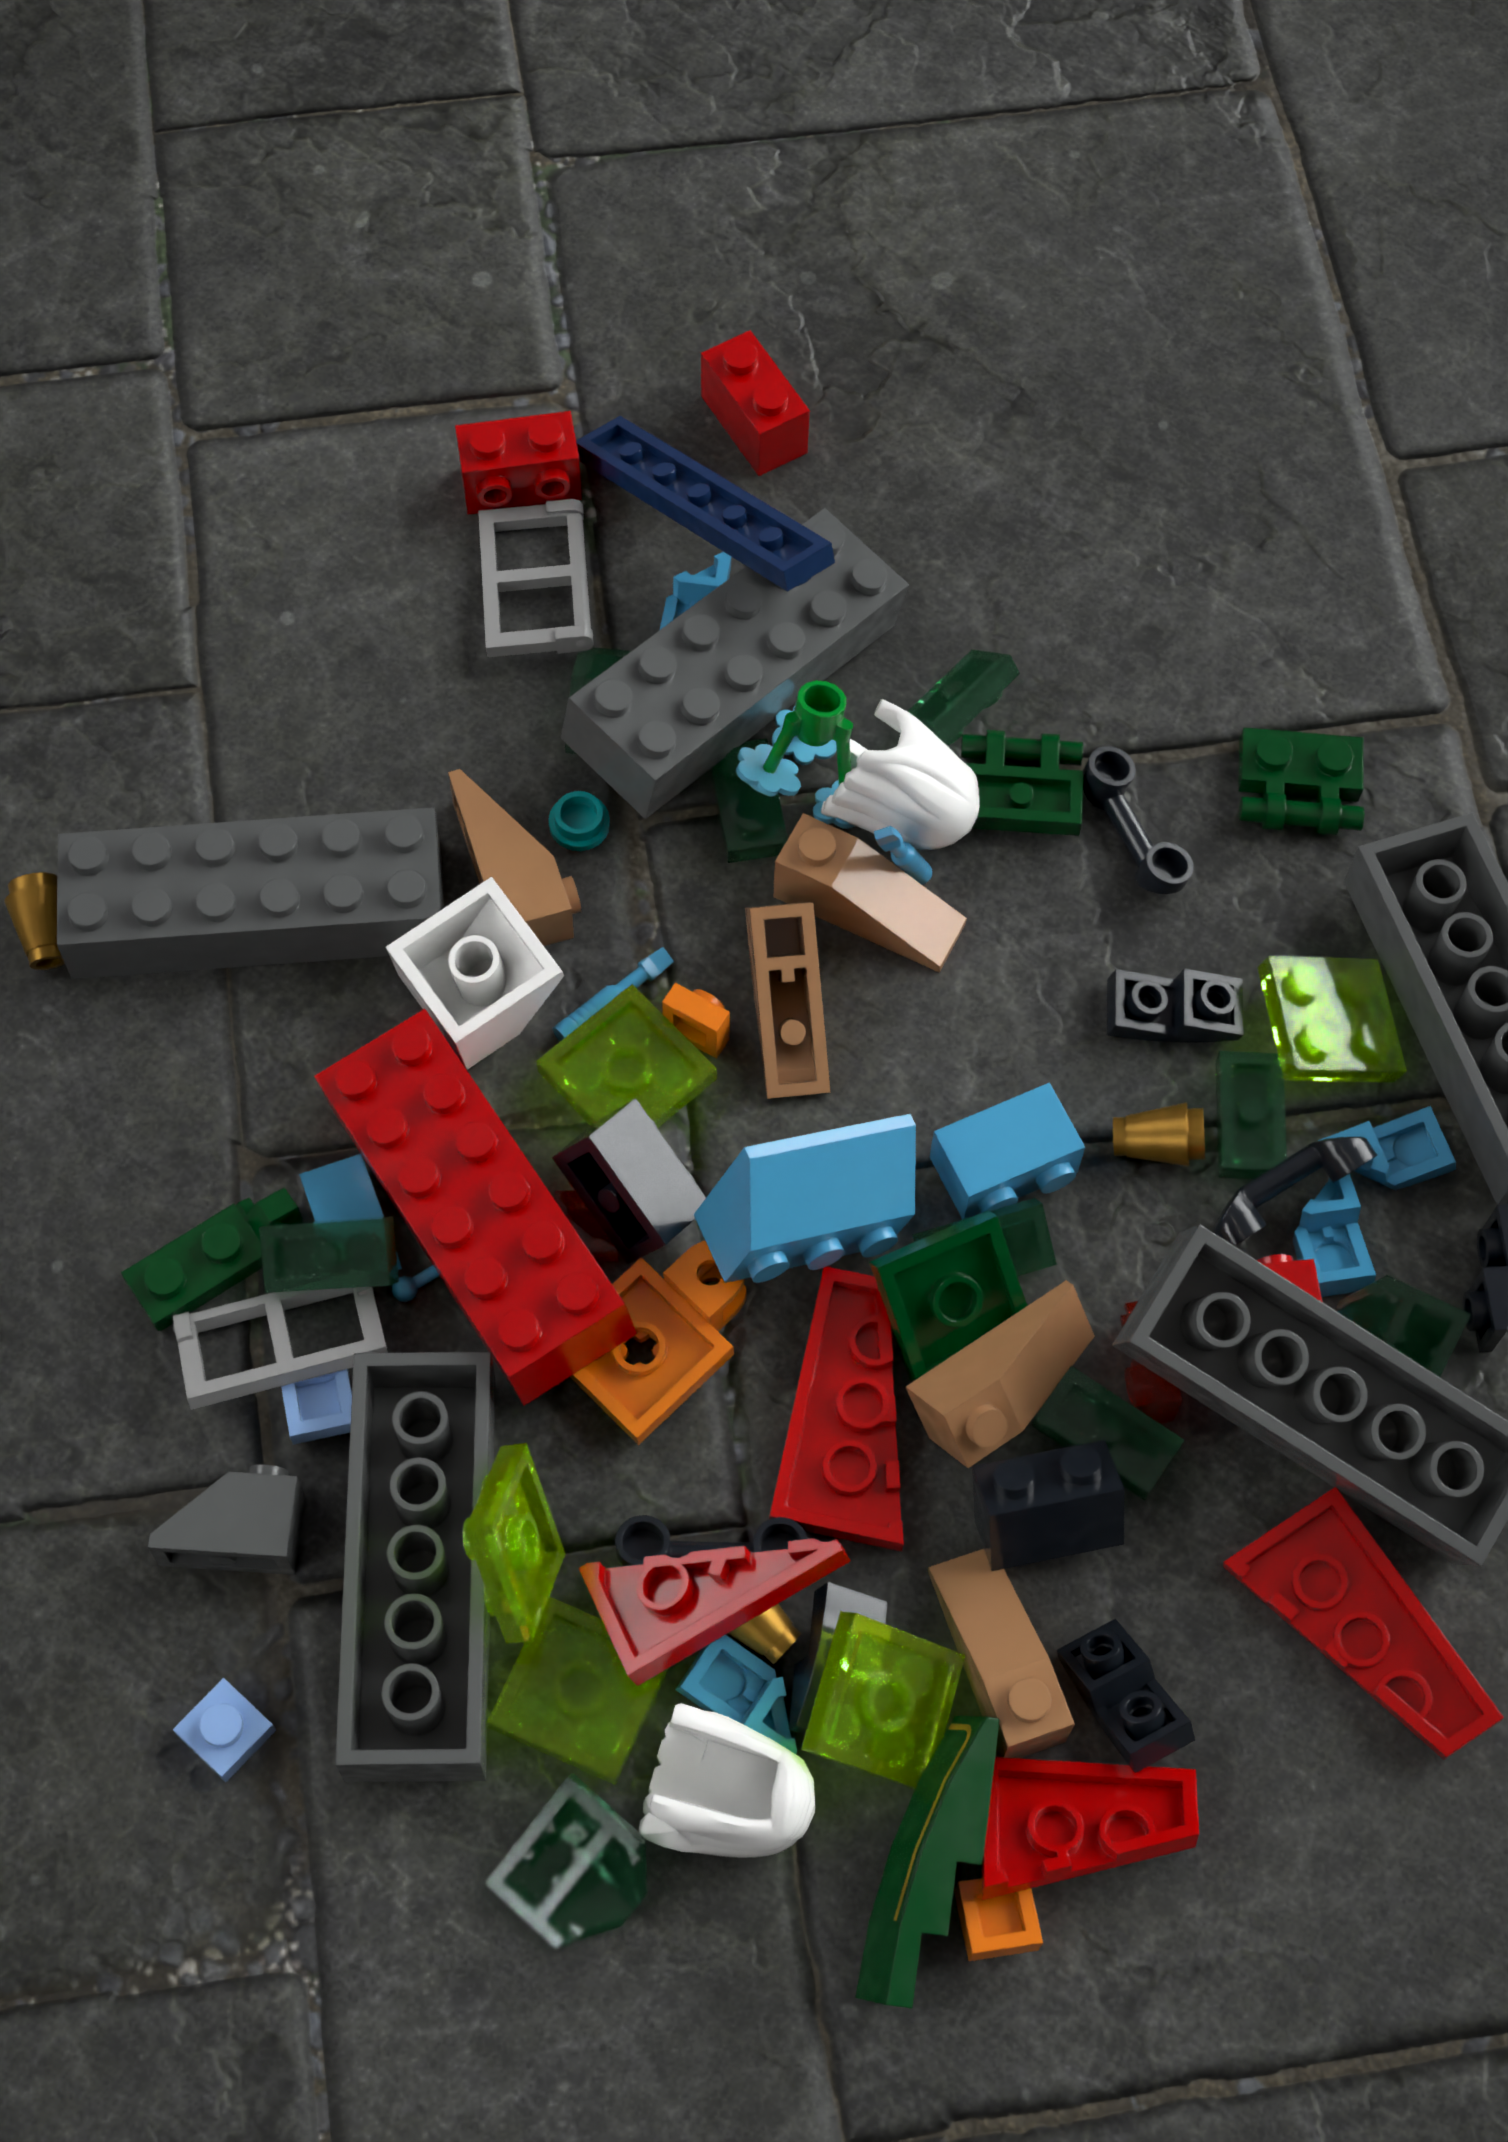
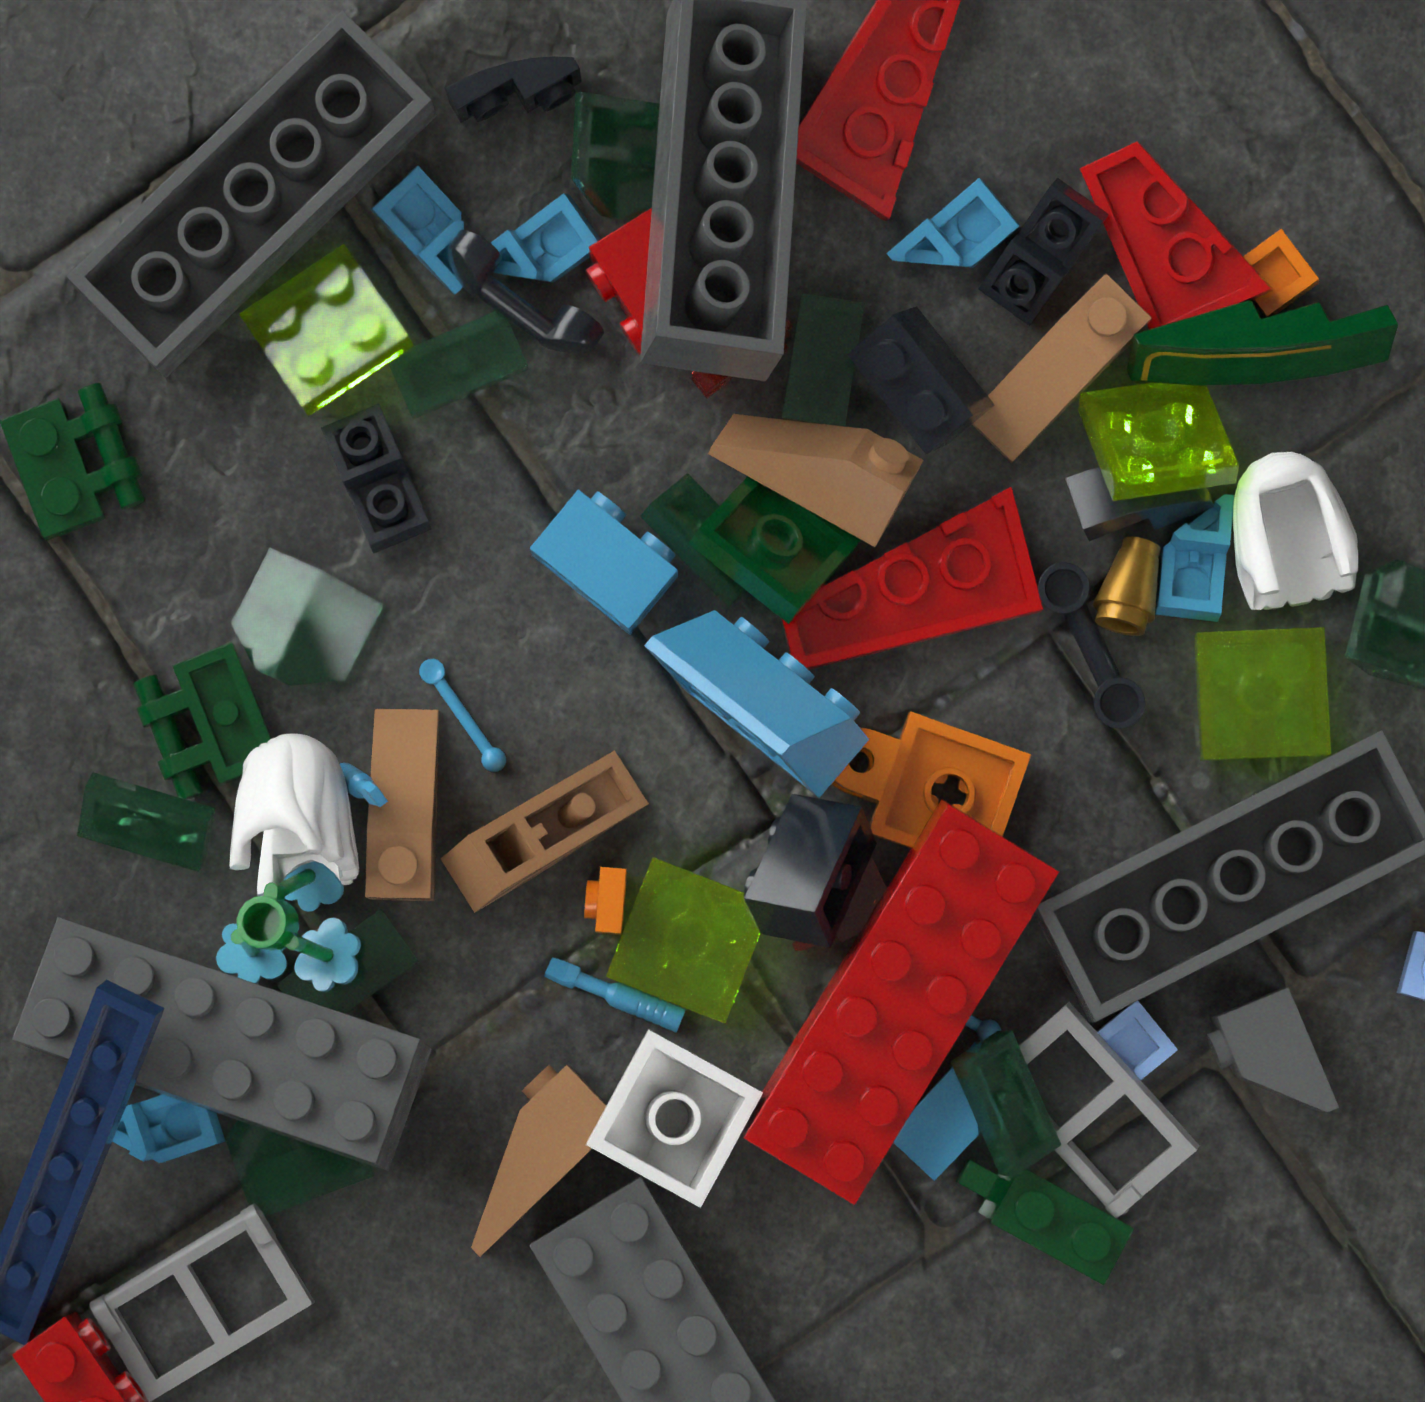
camera: 115 degrees left, 20 degrees up
(514, 1543) = (1189, 798): clear neon green plate -> none
(579, 821) = (452, 1118): teal plate -> none
(685, 1603) = (1167, 637): wing -> none
(975, 980) = (433, 673): none -> dark azure hinge
(1070, 896) = (303, 622): none -> clear green slope
(1161, 866) = (241, 551): black bar -> none
(1161, 1135) = (517, 434): pearl gold cone -> none
(1180, 1628) = (960, 232): none -> dark azure slope

